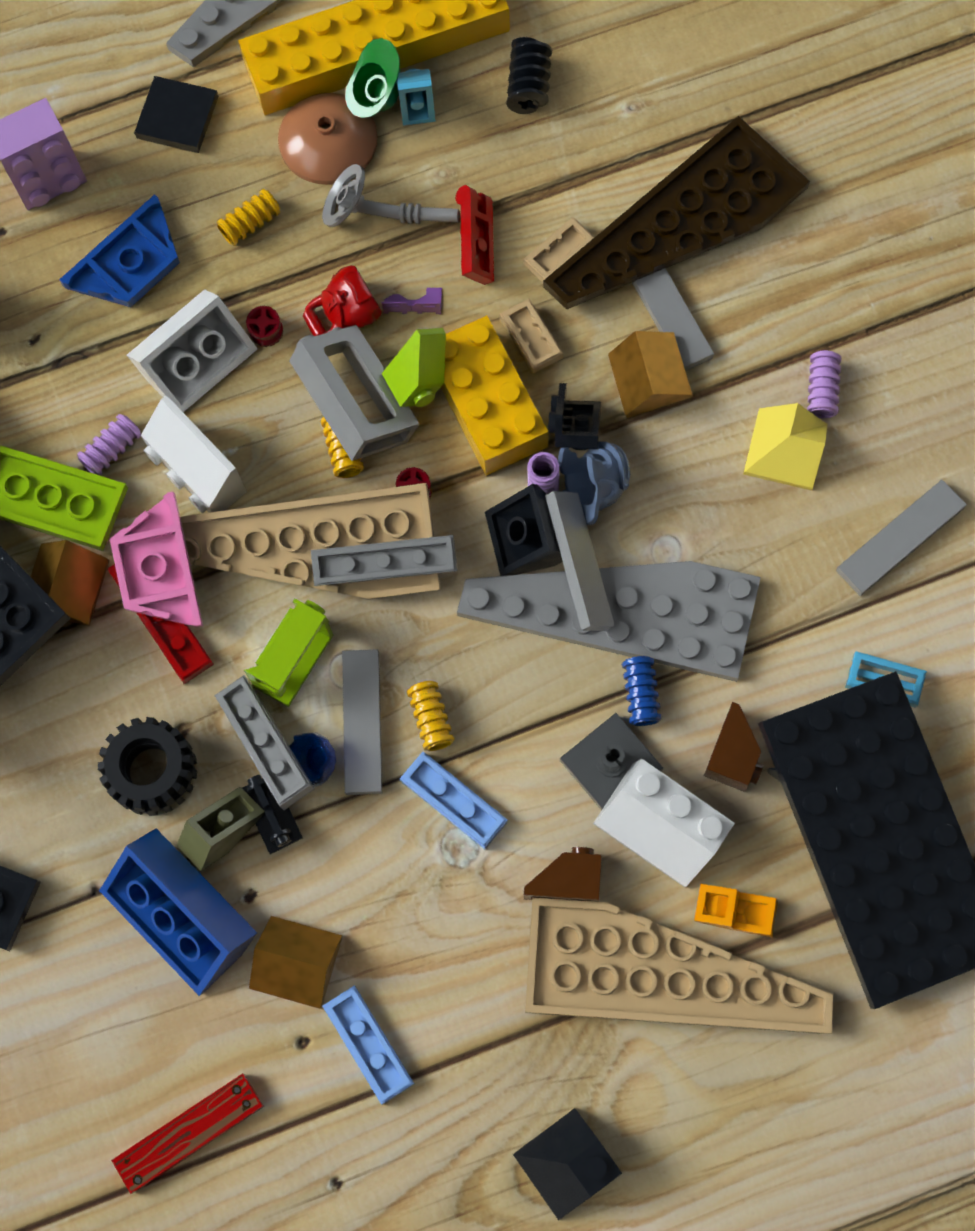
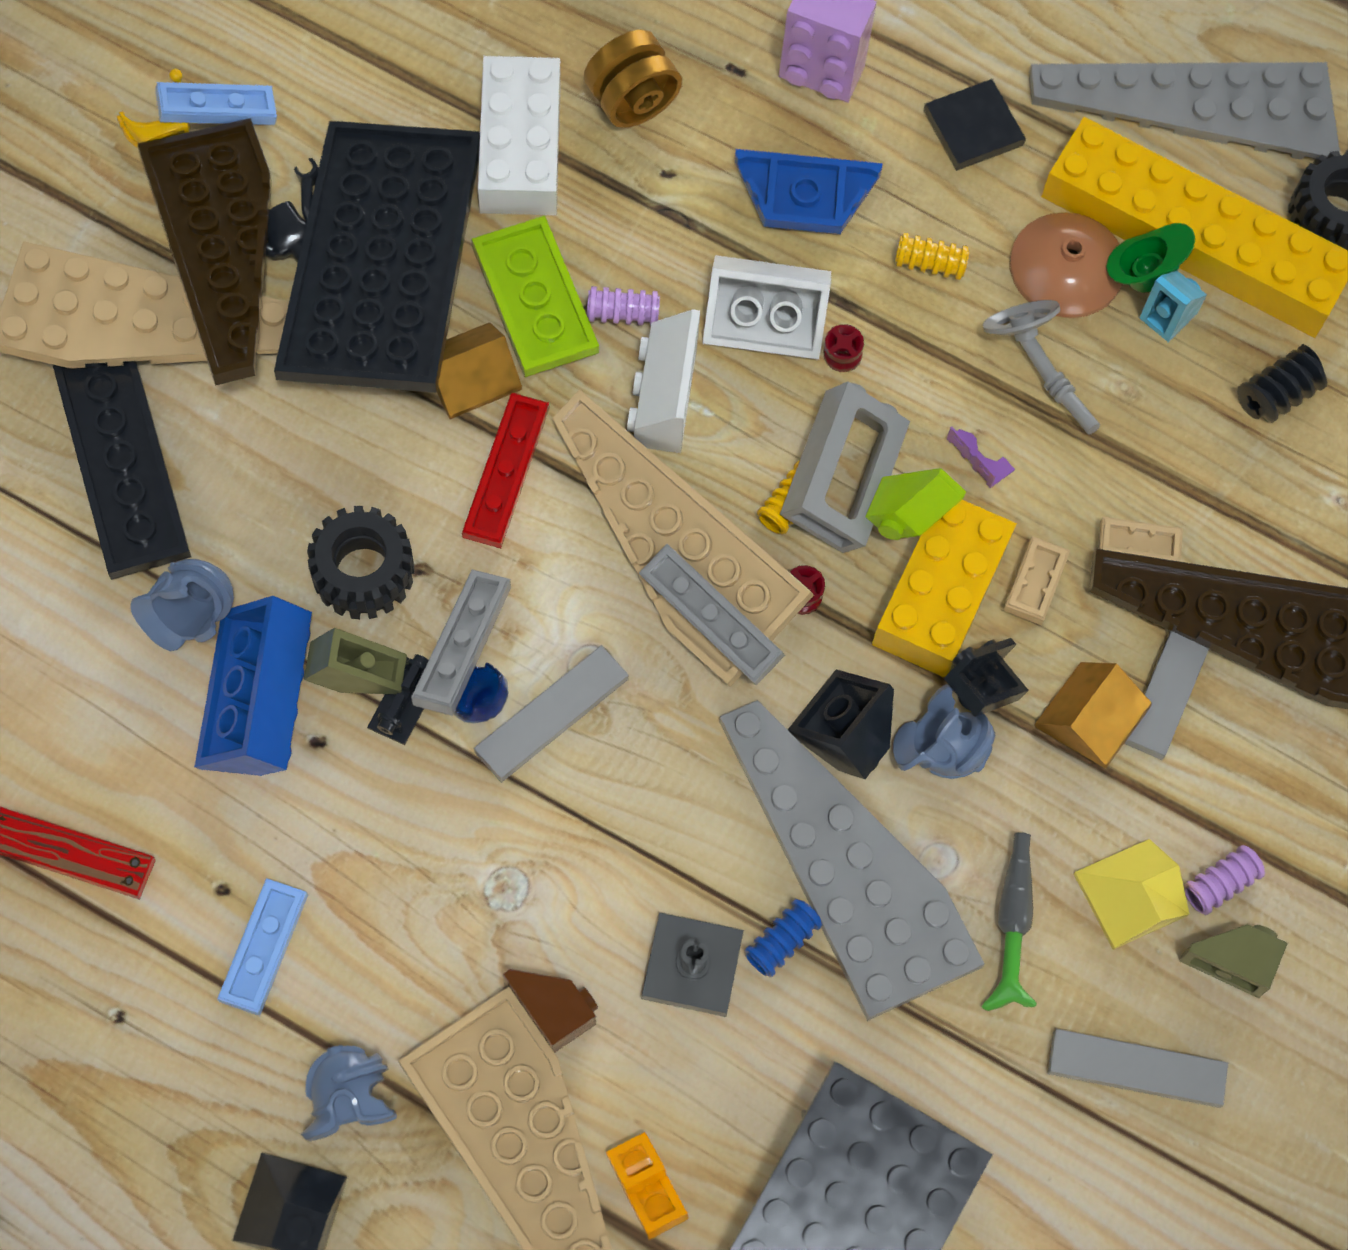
camera: 40 degrees right, 5 degrees down
(76, 912) = (184, 604): none -> sand blue helmet
(156, 566) = (545, 427): bright pink wing -> none
(291, 652) = (562, 601): lime window -> none
(294, 961) = (287, 823): pearl gold slope -> none
(345, 302) = (925, 398): red piece -> none
(430, 715) = (604, 767): yellow piece -> none
(453, 800) = (544, 849): light blue tile -> none
(476, 235) = (1088, 458): red plate -> none
(519, 1066) = (342, 1091): none -> sand blue helmet
(544, 471) = (911, 689): lavender piece -> none
(579, 561) = (855, 784): light grey tile -> none
(663, 822) = (672, 1051): white slope -> none
(735, 753) = (793, 1067): reddish brown slope -> none
(748, 535) = (1015, 921): none -> piece
(883, 415) = (1239, 957): none -> olive slope
(890, 666) = (1000, 1195): medium azure tile -> none

